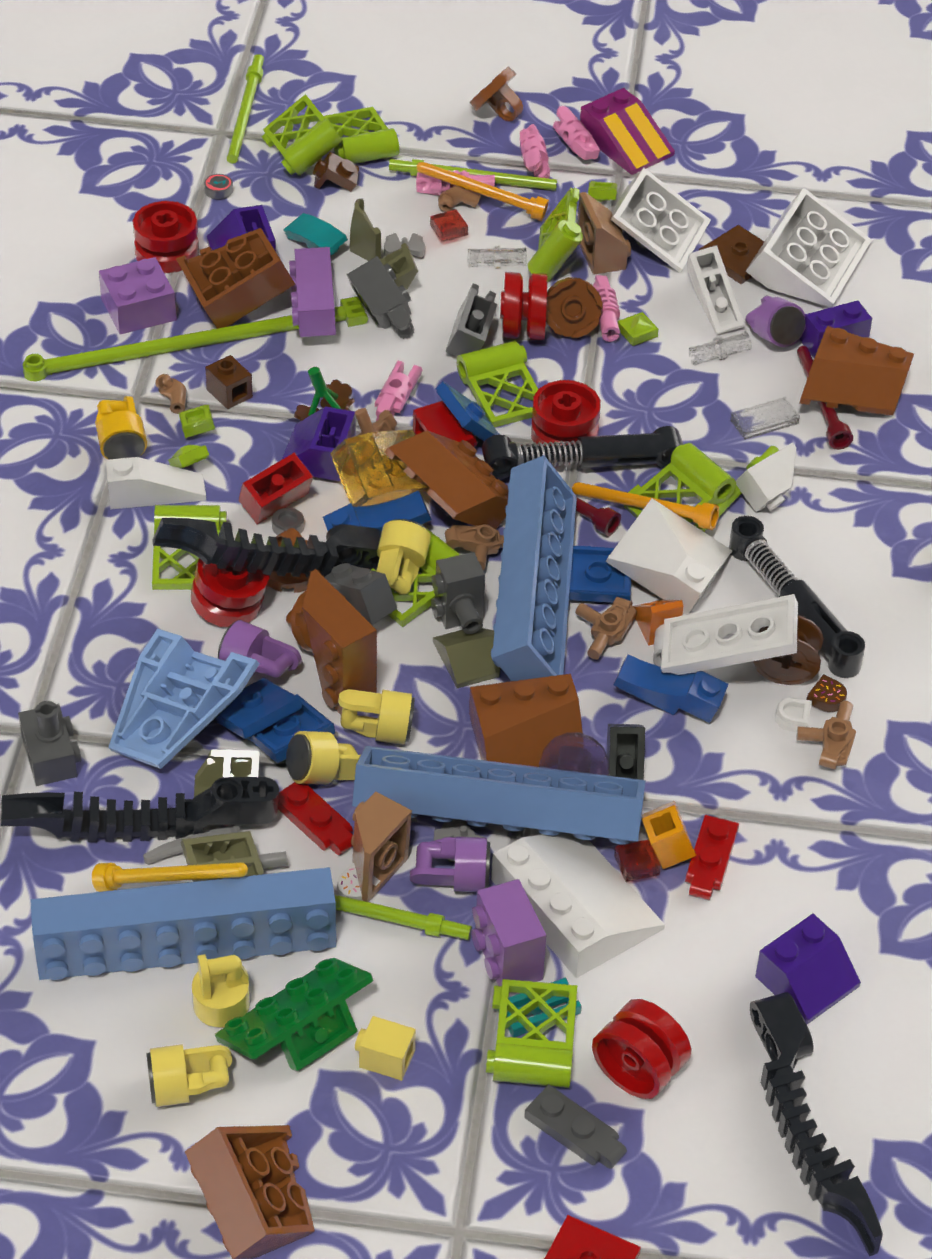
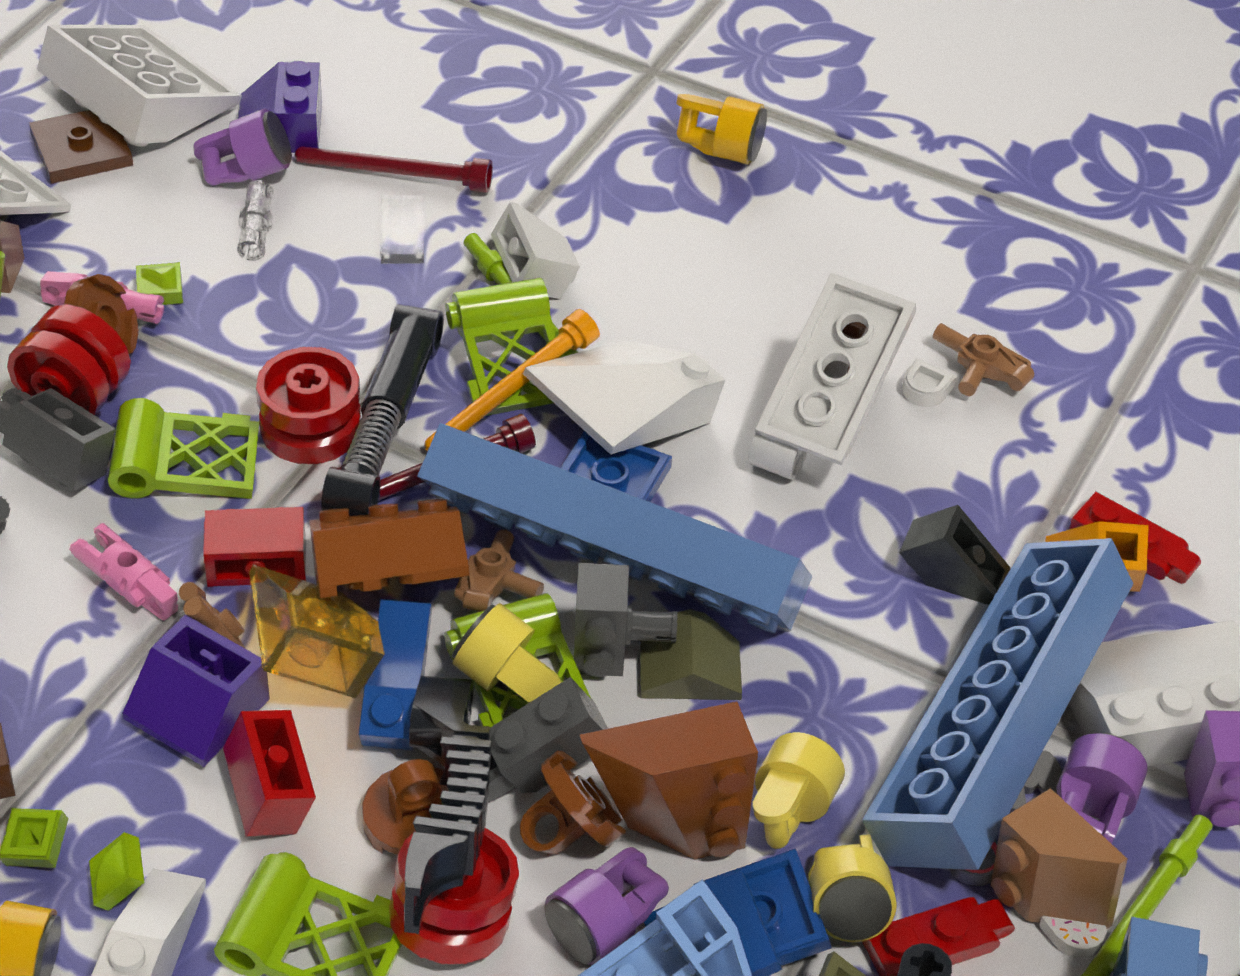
camera: 70 degrees left, 0 degrees up
(287, 518) = (330, 790): flat silver tile -> none
(333, 395) = (96, 646): plant -> none
(467, 412) = (249, 495): blue plate -> none
(522, 716) = (862, 644): dark orange wedge -> none
(575, 753) = (960, 602): clear purple tile -> none
(609, 625) = (709, 496): medium nougat piece -> none
(637, 860) = (1138, 611): clear red plate -> none
(652, 615) = (717, 443): orange slope -> none
(692, 692) = (837, 489): blue slope -> none
(714, 290) = (148, 184): white slope -> none
(827, 694) = (914, 345): reddish brown tile -> none
(840, 646) = (628, 315): black piece -> none
(857, 373) = (392, 116): dark orange wedge -> none

